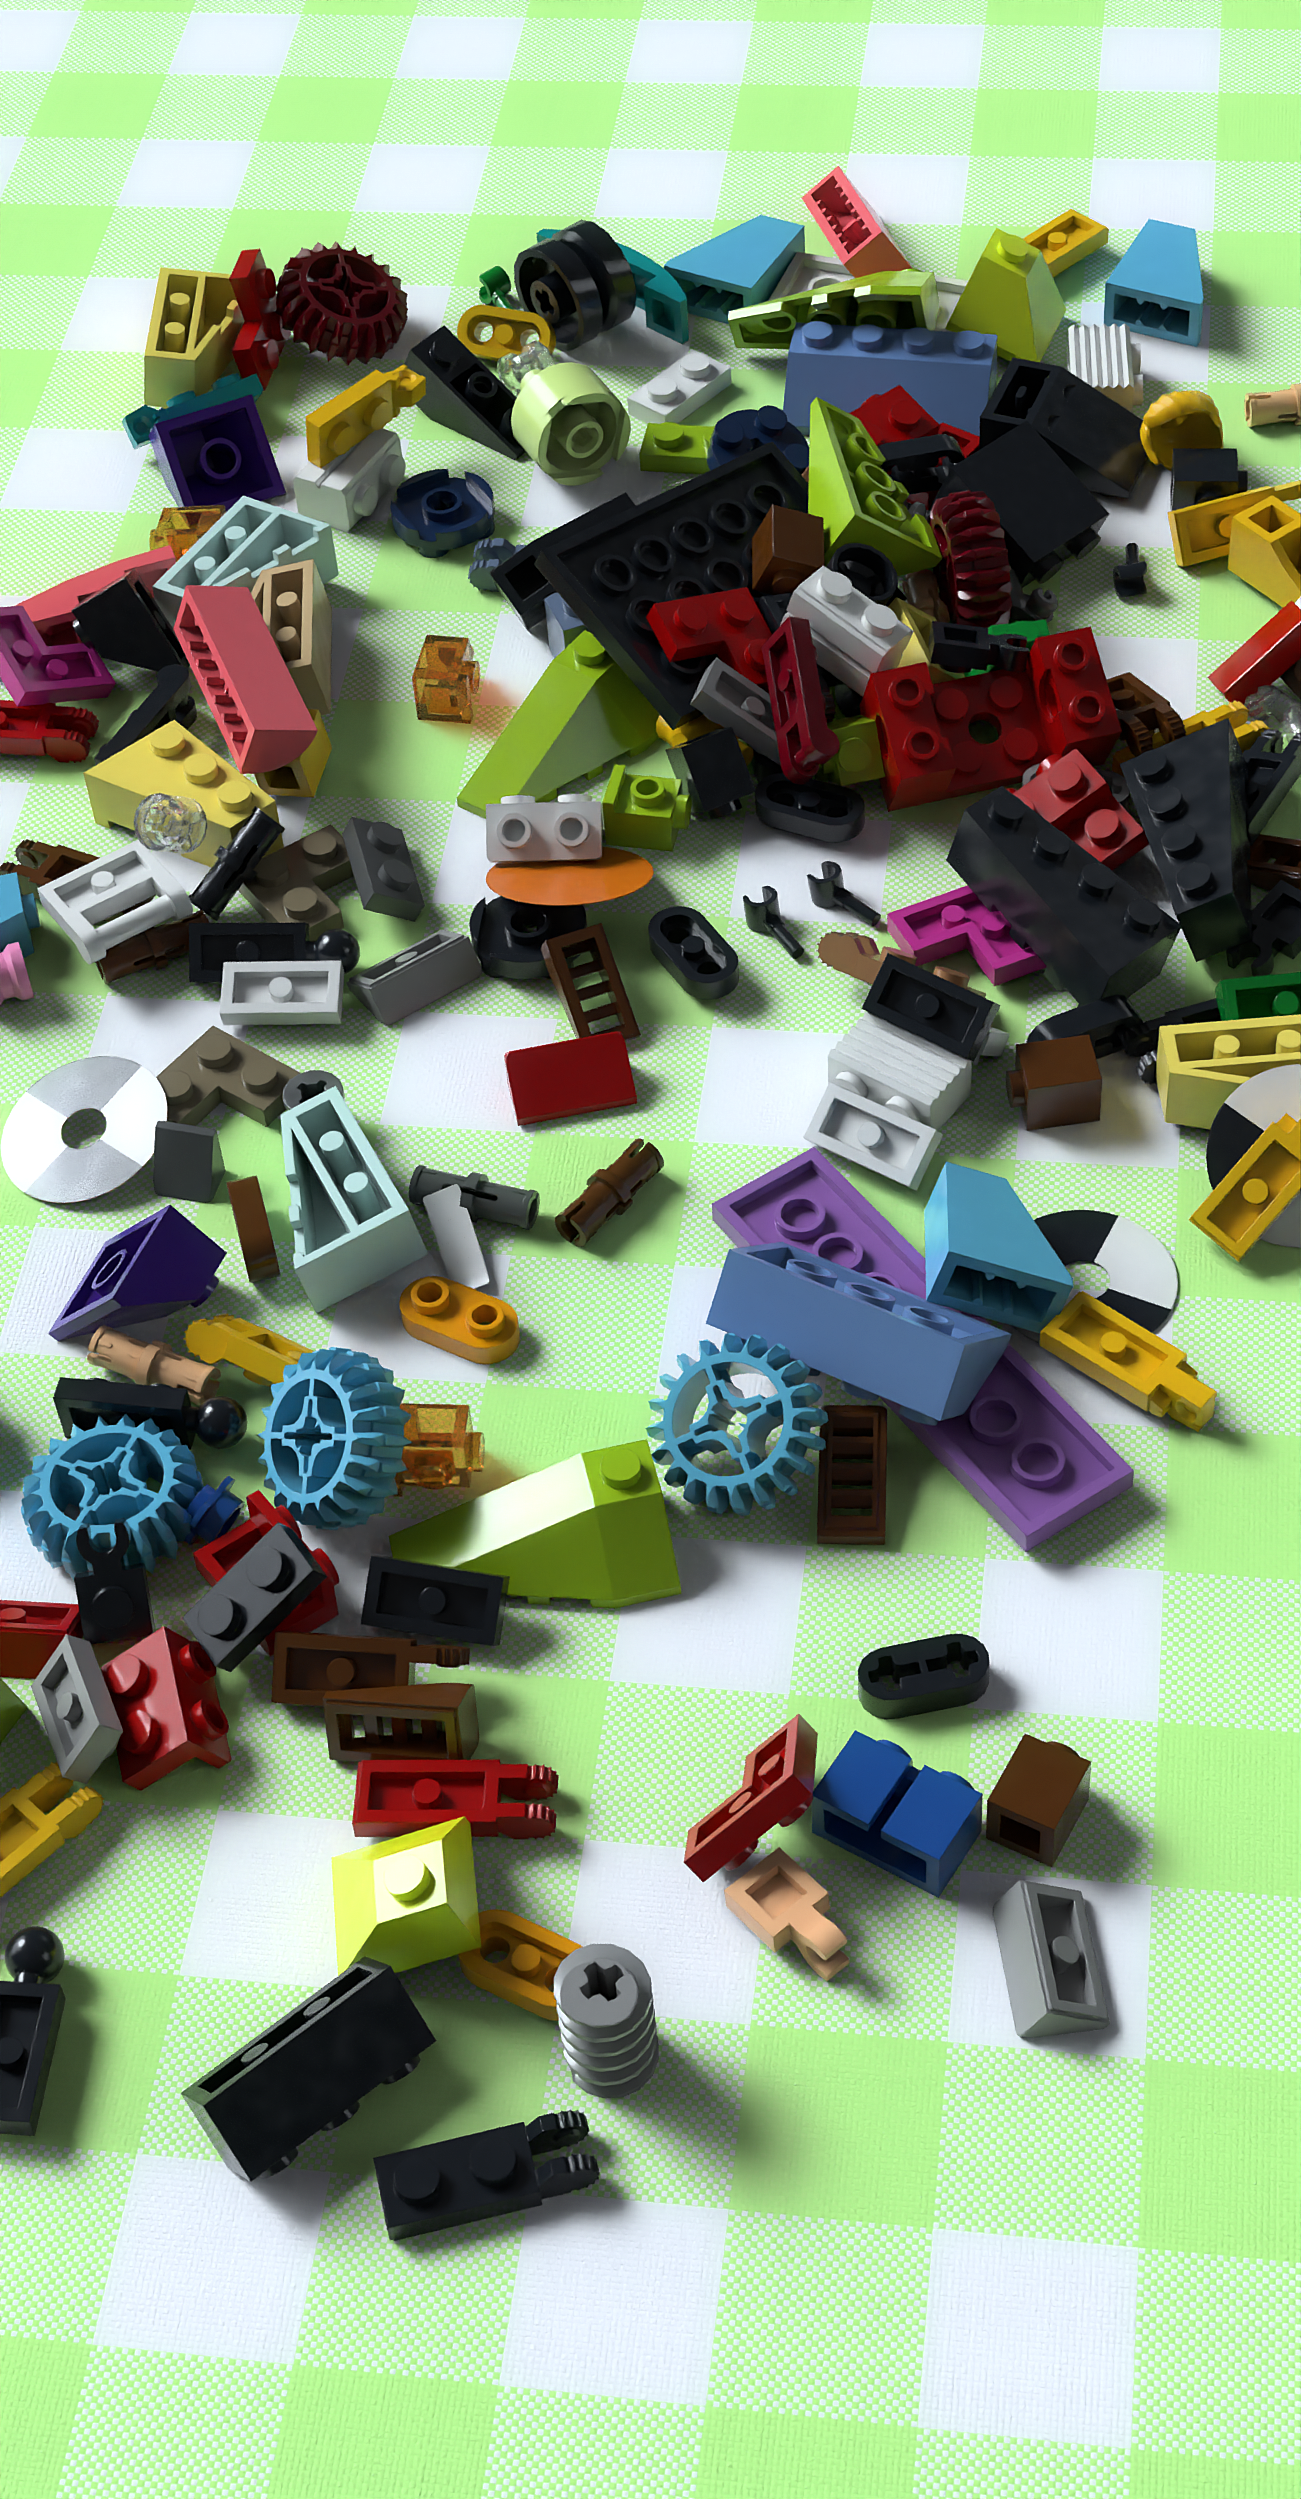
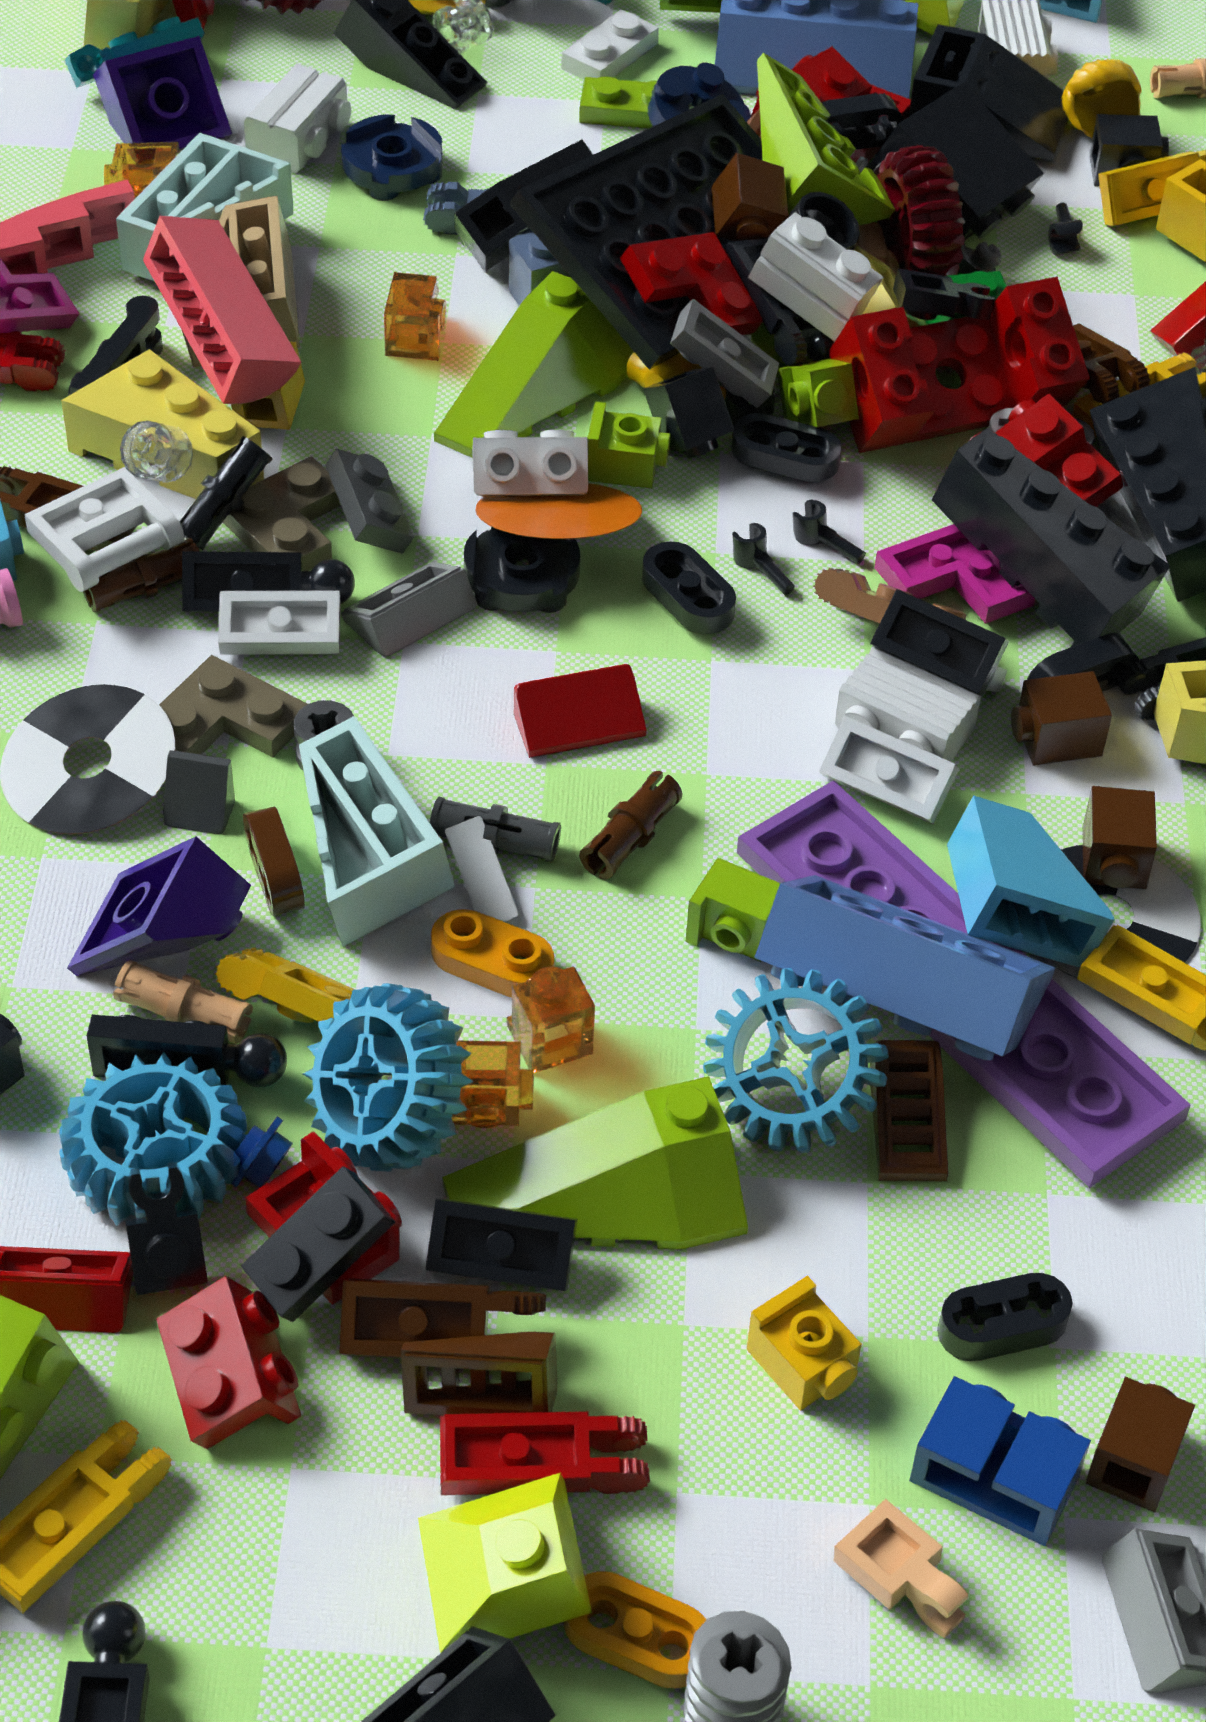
camera: 10 degrees left, 0 degrees up
(77, 1709) = (138, 1365): light grey plate -> none
(128, 625) = (92, 256): black slope -> none
(360, 411) = (309, 55): yellow hinge -> none
(501, 1365) = (548, 1001): none -> clear orange brick
(569, 422) = (513, 73): yellowish green brick -> none
(577, 943) = (604, 596): reddish brown slope -> none
(688, 1272) = (730, 908): none -> lime brick
(718, 1699) = (803, 1345): none -> yellow brick
(773, 1791) = (878, 1443): red plate -> none
(797, 701) = (774, 343): dark red plate -> none
(1097, 1203) = (1119, 837): none -> reddish brown brick

